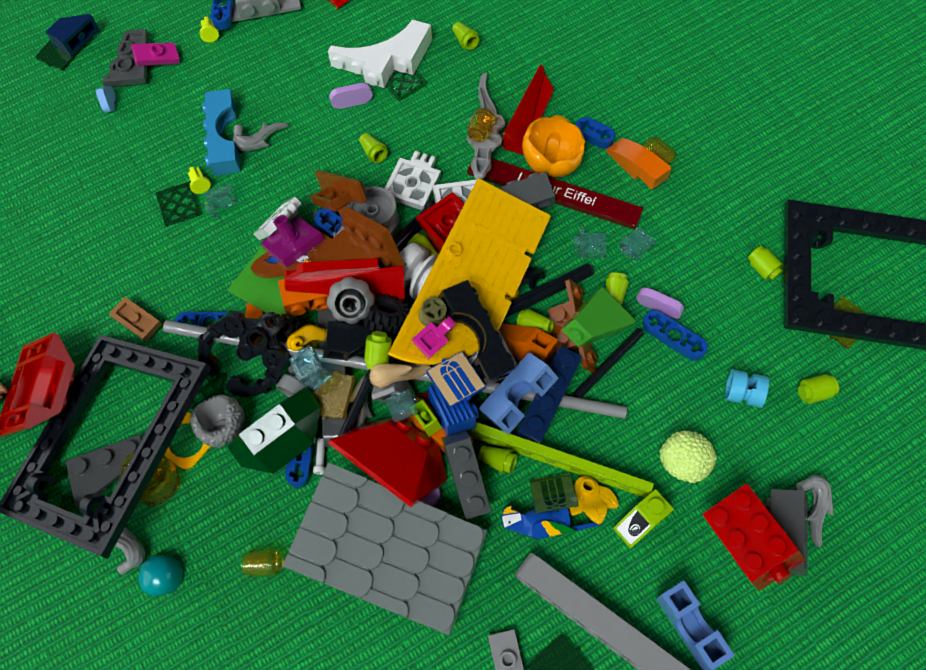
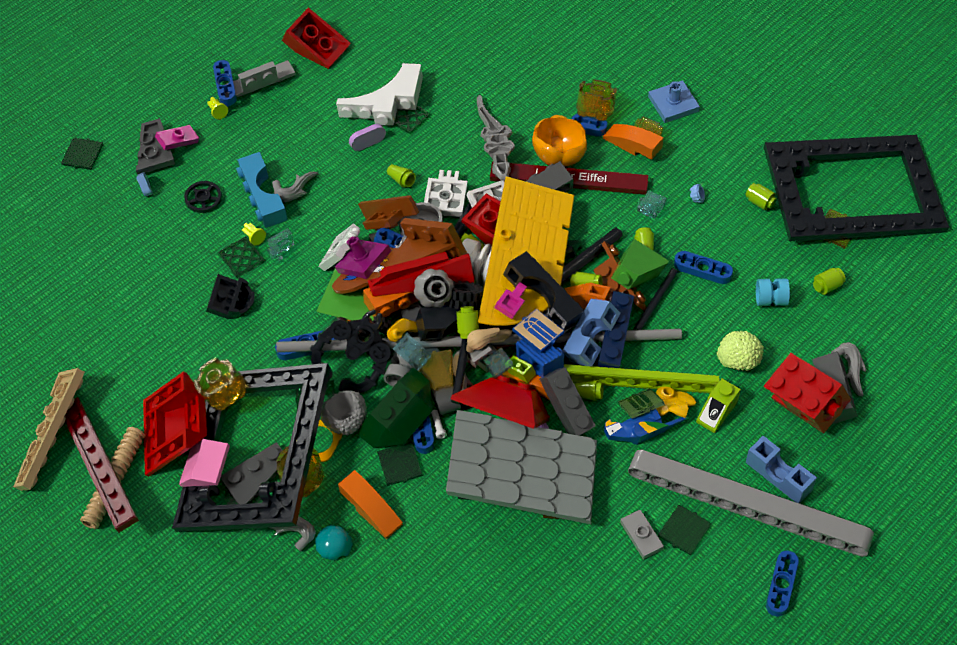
camera: 15 degrees left, 10 degrees down
(49, 446) = (204, 463): none -> bright pink slope
(72, 32) = (92, 134): dark blue slope -> none
(92, 354) = (220, 383): none -> clear yellow brick
(135, 319) = (239, 354): medium nougat plate -> none
(148, 249) = (230, 297): none -> black slope
(161, 126) = (202, 196): none -> black wheel
(212, 540) = (370, 504): none -> orange slope
(262, 563) = (418, 511): clear yellow brick -> none
(264, 494) = (399, 463): none -> clear green piece
(434, 306) = (501, 279): olive wheel -> none
(466, 36) = (453, 68): lime cone -> none
(481, 125) = (494, 135): clear yellow brick -> none
(529, 109) = (528, 118): red wedge -> none
(590, 244) = (612, 213): clear light blue bracket -> none
(609, 105) = (596, 99): none -> clear yellow brick
(660, 302) = (679, 243): lavender tile -> none
(693, 242) = (697, 193): none -> light blue piece
(697, 125) = (673, 101): none -> medium blue tile

